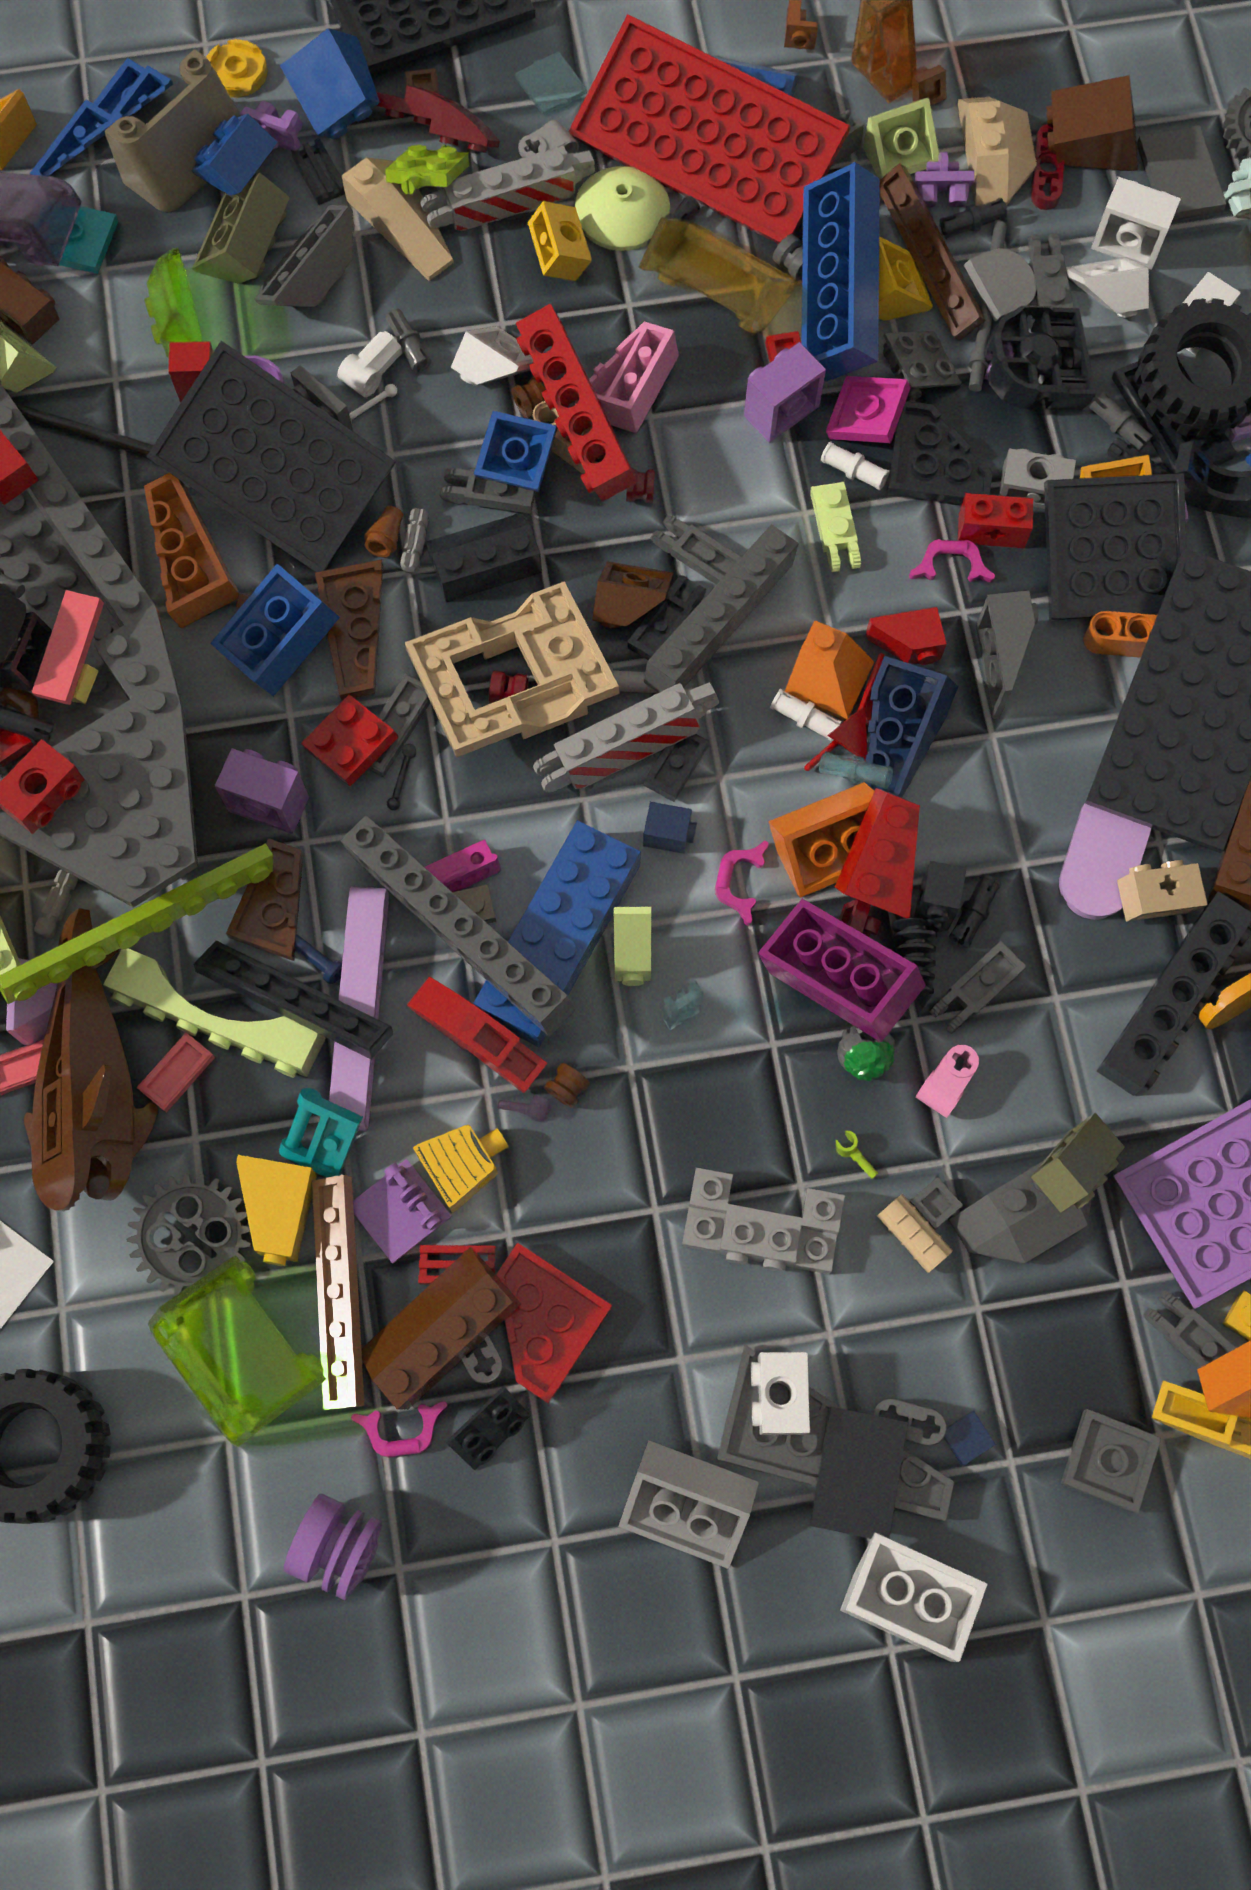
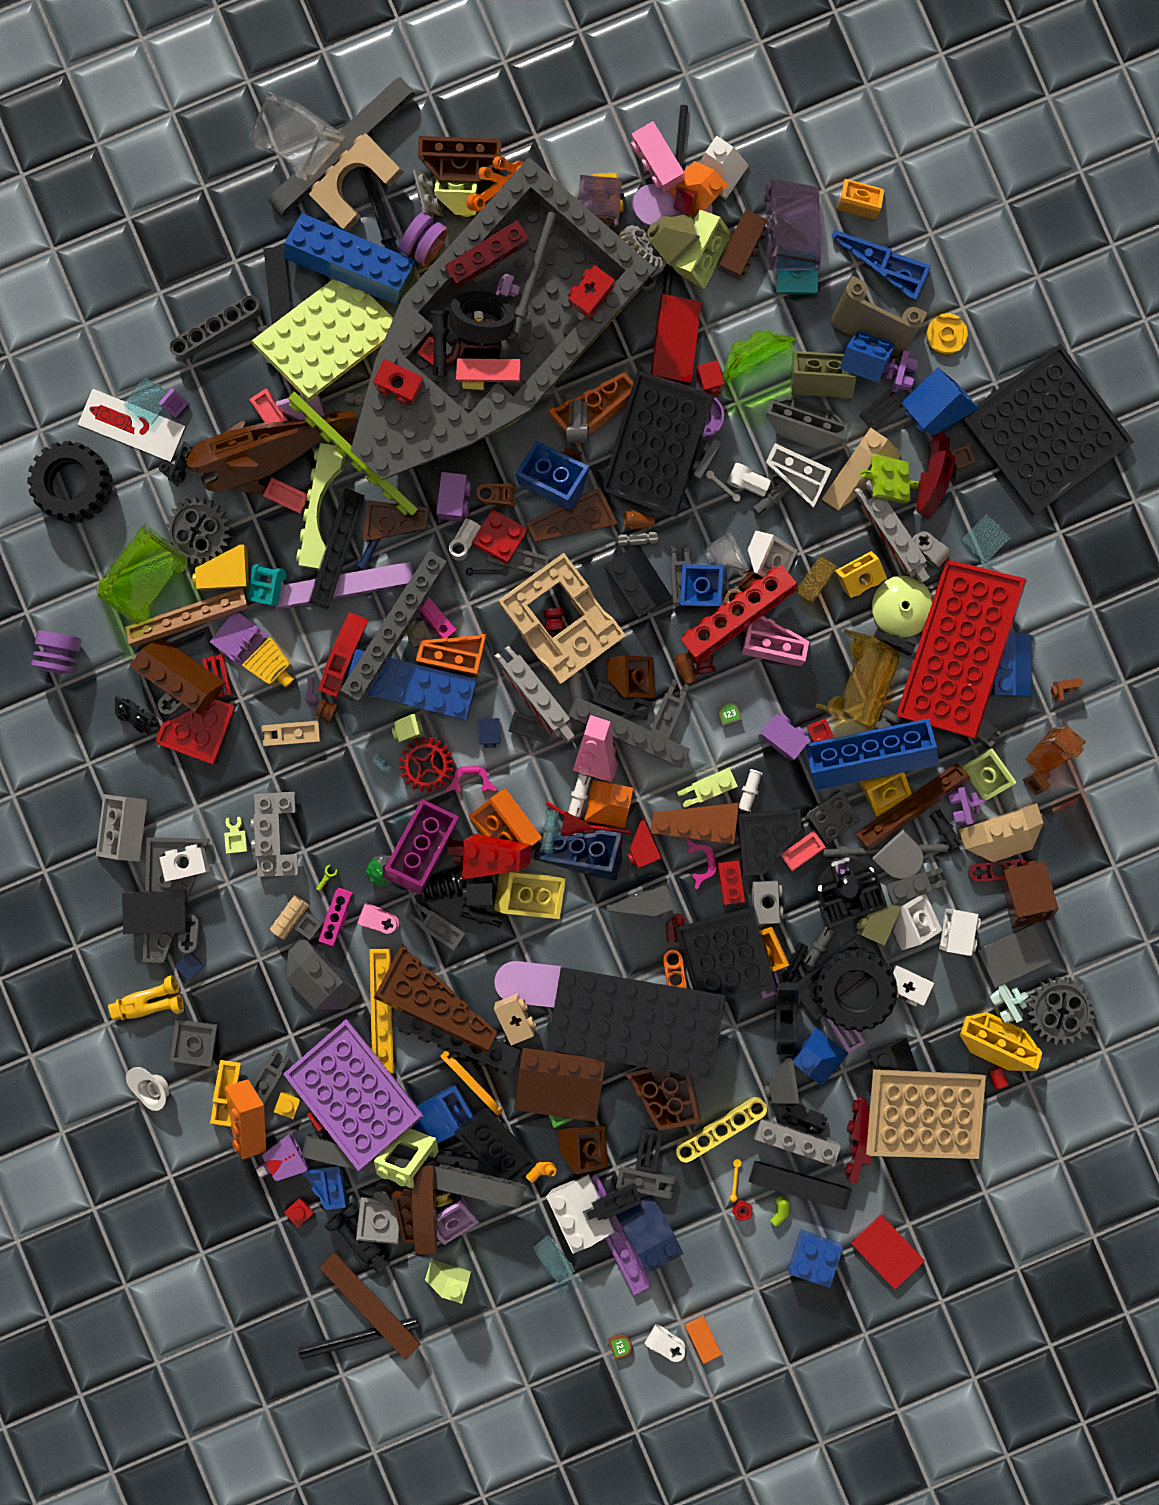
camera: 75 degrees right, 15 degrees up
(70, 1249) = (176, 472): none -> black hinge
(108, 413) = (676, 338): none -> red tile
(209, 565) = (577, 429): none -> dark grey piece
(282, 726) = (498, 494): none -> dark orange piece
(336, 795) = (464, 538): none -> white piece
(379, 284) = (799, 472): none -> white wedge
(406, 1446) = (117, 673): dark pink helmet -> none
(472, 403) = (727, 553): none -> clear slope
(526, 848) = (453, 655): none -> orange wedge
(540, 292) = (816, 579): none -> clear yellow slope
(590, 1155) = (291, 733): none -> tan plate
(635, 514) = (685, 665): none -> dark orange cone
(711, 951) = (442, 773): none -> red gear
(726, 471) = (729, 713): none -> tile
(739, 659) = (596, 751): none -> bright pink wedge
(757, 1297) = (235, 839): none -> yellowish green plate
(868, 409) = (788, 790): dark pink plate -> none
(893, 535) = (703, 823): none -> dark orange wedge
(914, 1598) = (98, 952): white slope -> none
(930, 1167) = (342, 917): none -> dark pink piece
(956, 822) = (529, 894): none -> light yellow slope
(965, 414) = (802, 851): none -> coral tile
(1023, 1552) = (136, 1004): none -> yellow piece
(1052, 627) = (675, 921): none -> clear red arm
(1072, 1106) = (381, 1013): none -> yellow tile
(1079, 1164) = (341, 997): olive brick -> none
(1107, 322) = (878, 924): none -> olive slope
(1107, 1019) = (426, 997): none -> reddish brown wing
(1185, 1564) = (148, 1088): none -> white piece

